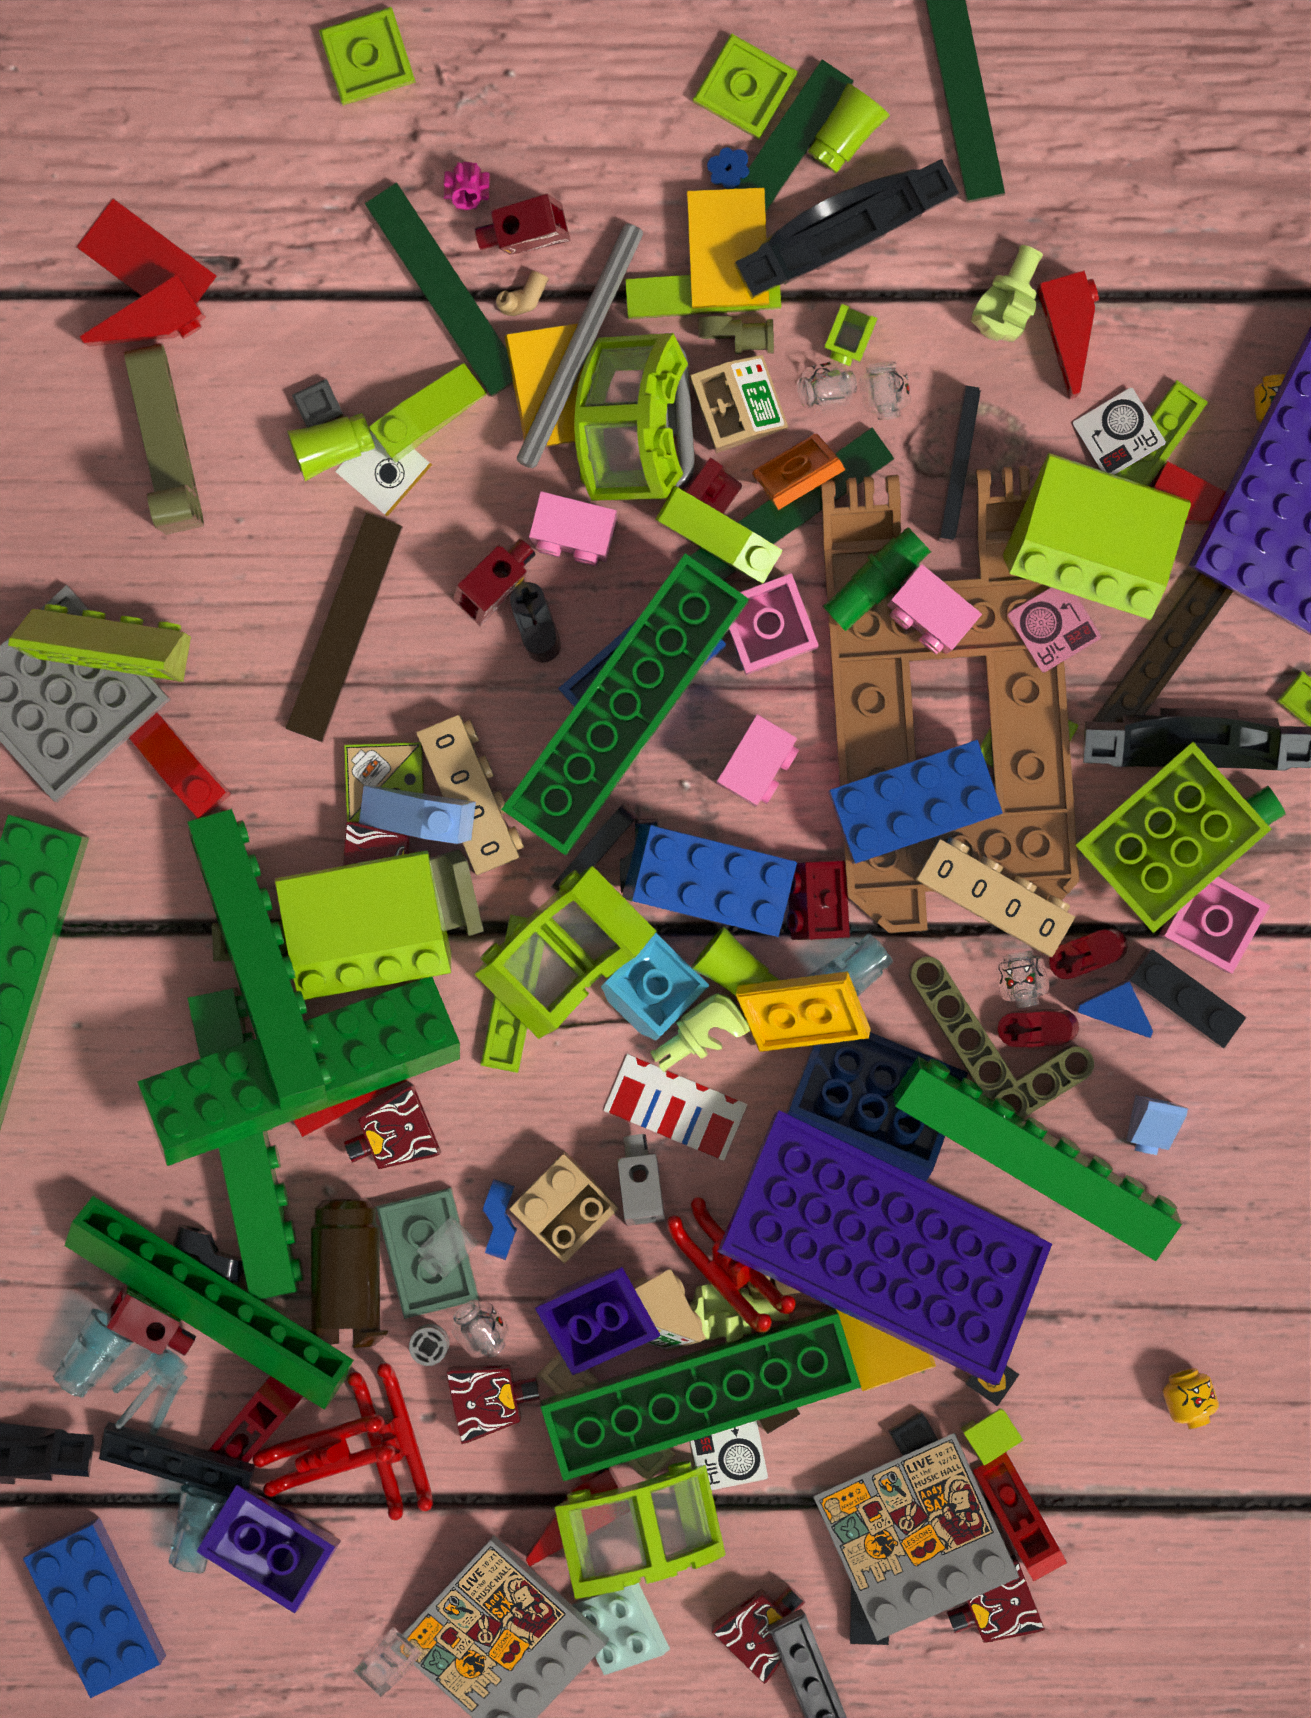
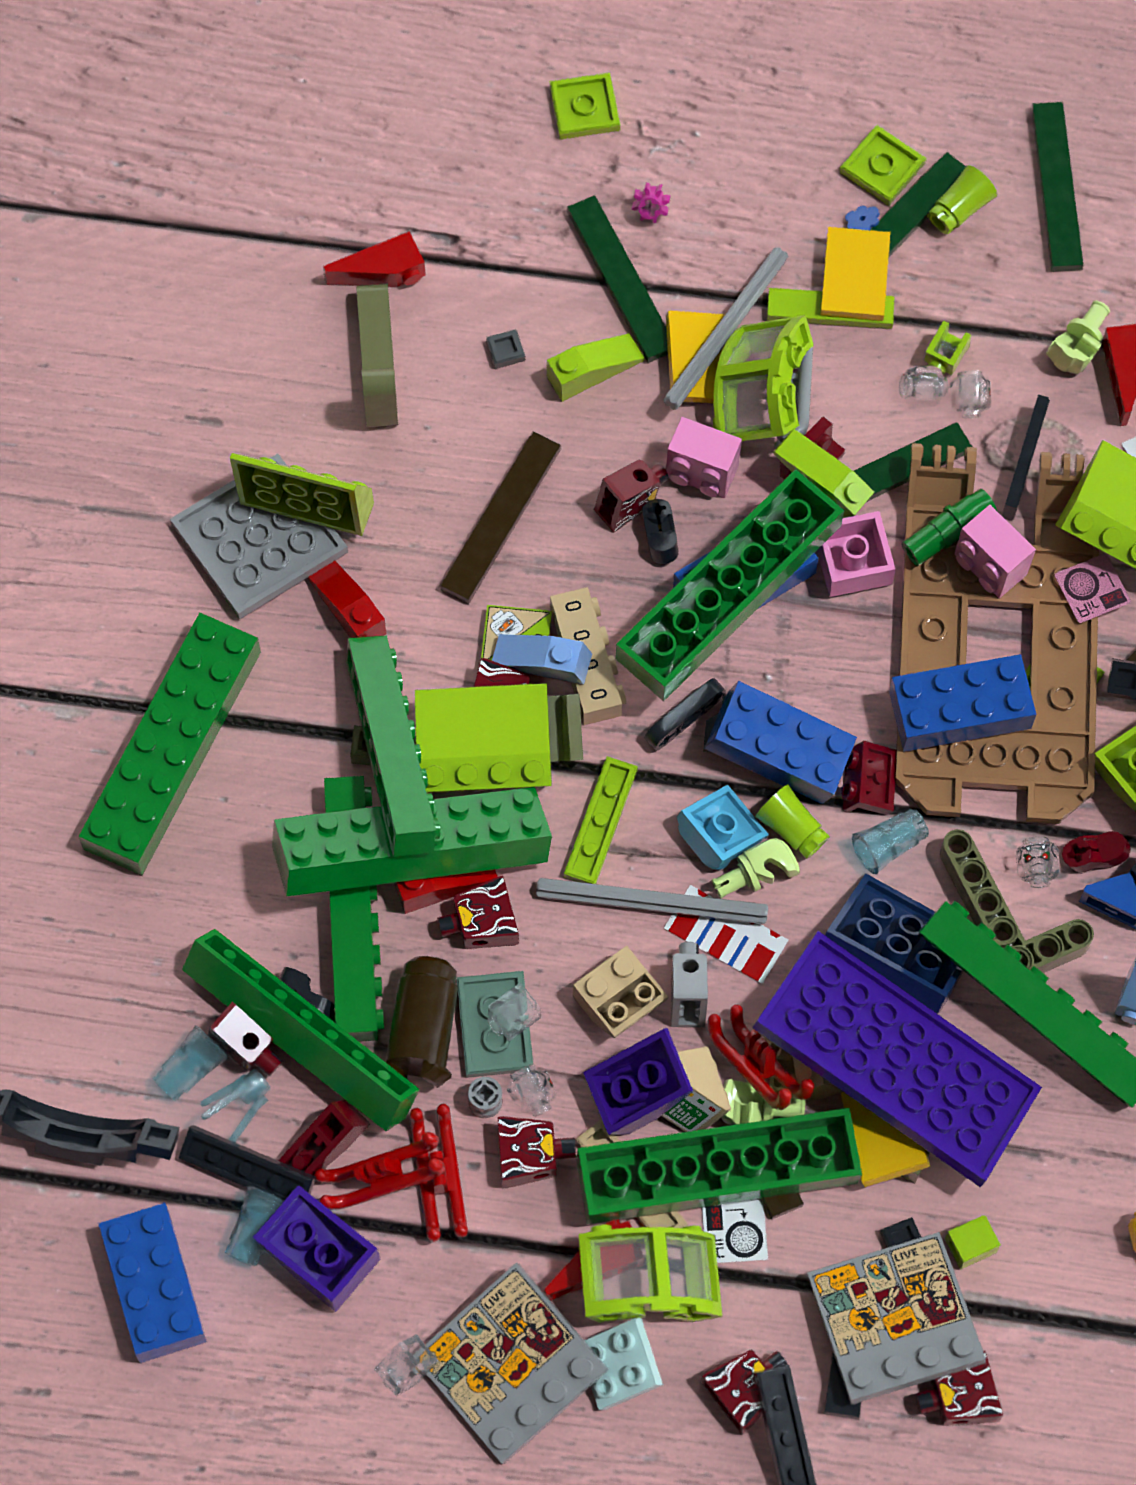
camera: 10 degrees right, 20 degrees down
(140, 253) = (377, 220): red sticker -> none
(330, 444) = (511, 375): lime plant -> none
(381, 478) = (546, 409): white sticker -> none
(503, 1228) = (560, 992): blue piece -> none
(522, 300) = (684, 294): tan arm -> none
(539, 221) = (694, 235): dark red torso -> none
(562, 949) = (650, 783): lime window -> none
(585, 1084) = (652, 900): none -> light grey axle
(738, 402) = (848, 386): tan slope -> none
(746, 335) = (843, 333): olive connector -> none
(757, 762) = (832, 656): bright pink brick -> none
(798, 471) = (892, 440): orange tile -> none
(803, 1011) = (848, 856): yellow tile -> none
(844, 225) = (953, 267): black piece -> none
(991, 1392) = (977, 1200): black tile -> none
(994, 897) = (1022, 788): tan brick -> none
(1020, 1517) = (993, 1321): red slope -> none
(1056, 1025) = (1032, 901): dark red piece -> none

